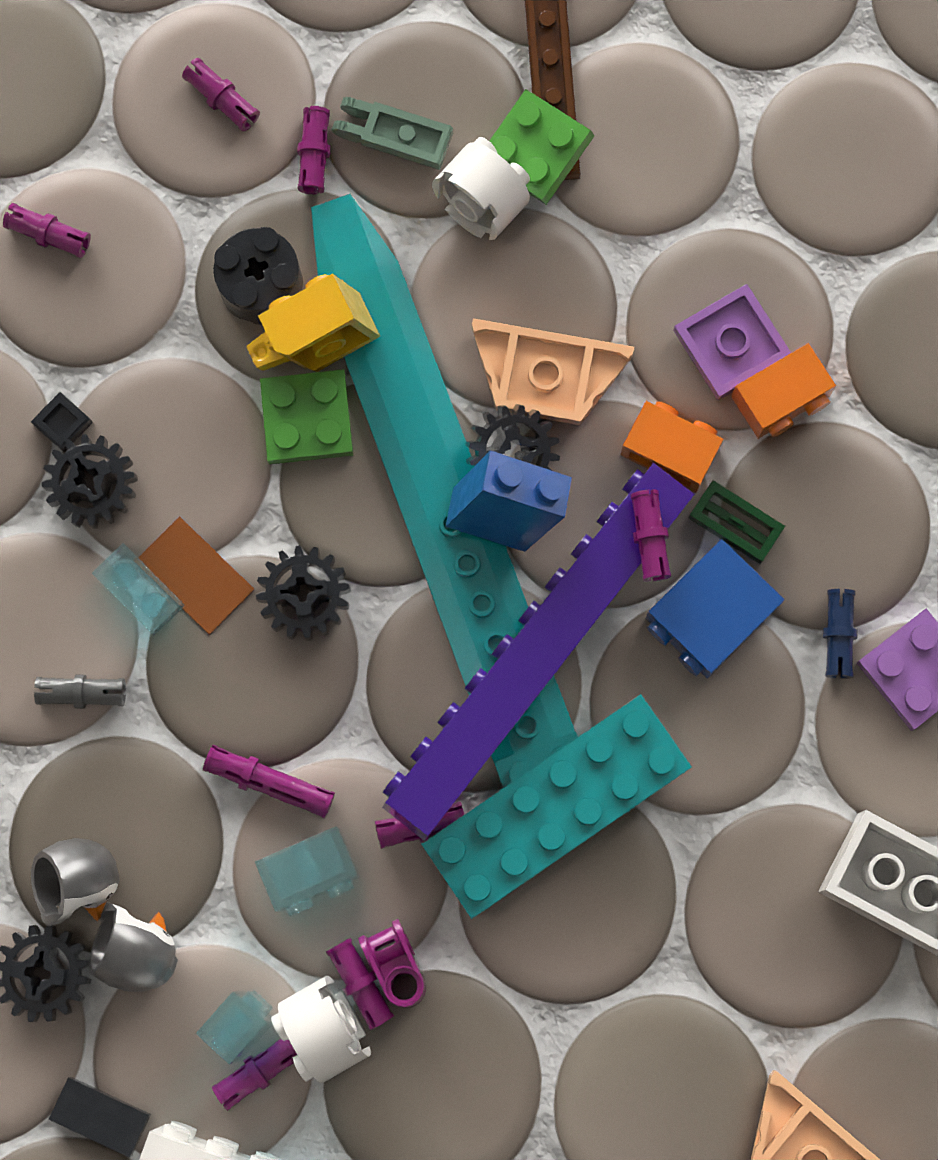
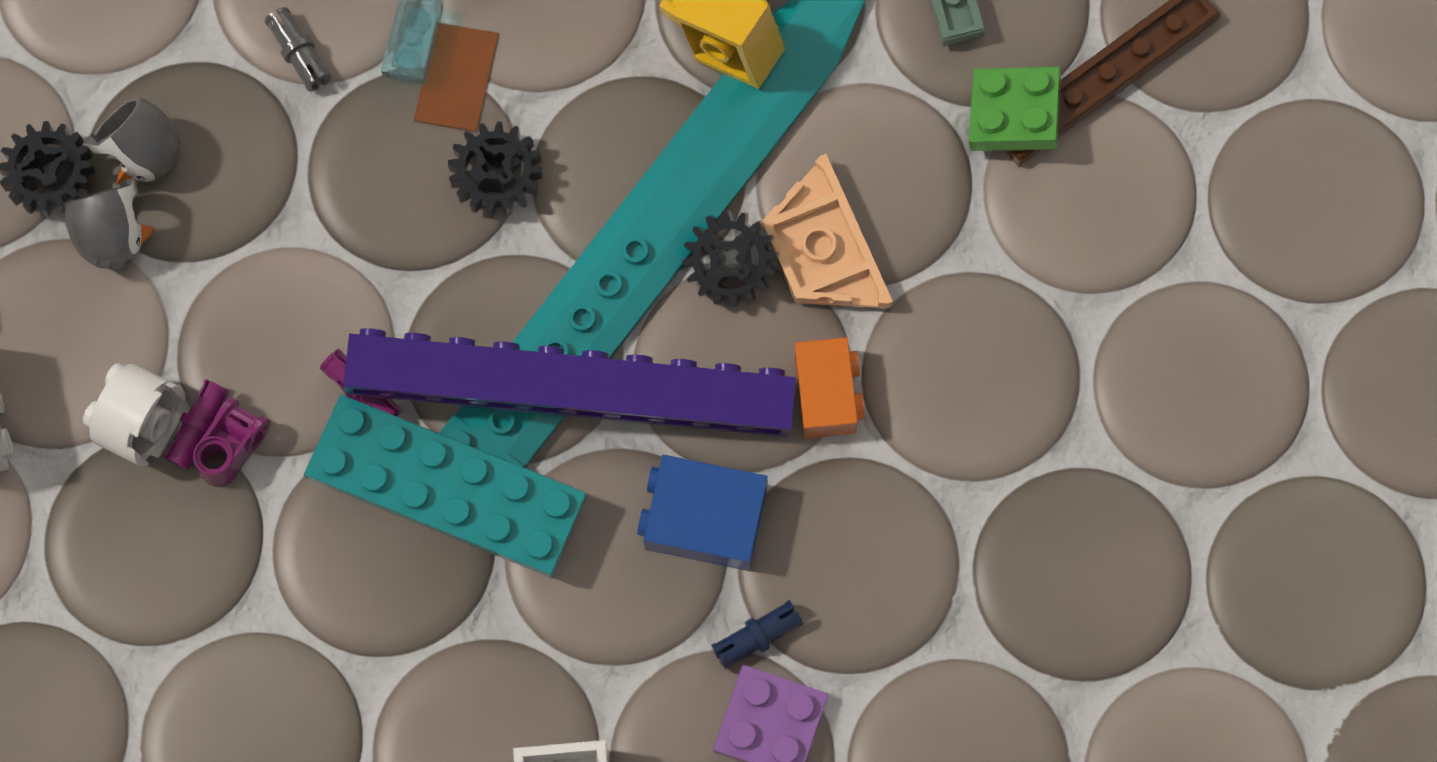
camera: 55 degrees right, 5 degrees down
(237, 1025) = (94, 341): clear light blue brick -> none
(254, 1073) = (68, 388): magenta pin -> none
(276, 784) = (315, 227): magenta pin -> none
(306, 417) = (650, 77): bright green plate -> none
(308, 871) = (263, 322): clear light blue brick -> none
(482, 189) = (941, 87): white brick -> none
(508, 501) = (676, 275): blue brick -> none
(650, 535) = (725, 410): magenta pin -> none
(731, 341) = (955, 382): medium lavender plate -> none
(744, 507) = (798, 523): dark green tile -> none
(783, 392) = (939, 452): orange brick -> none

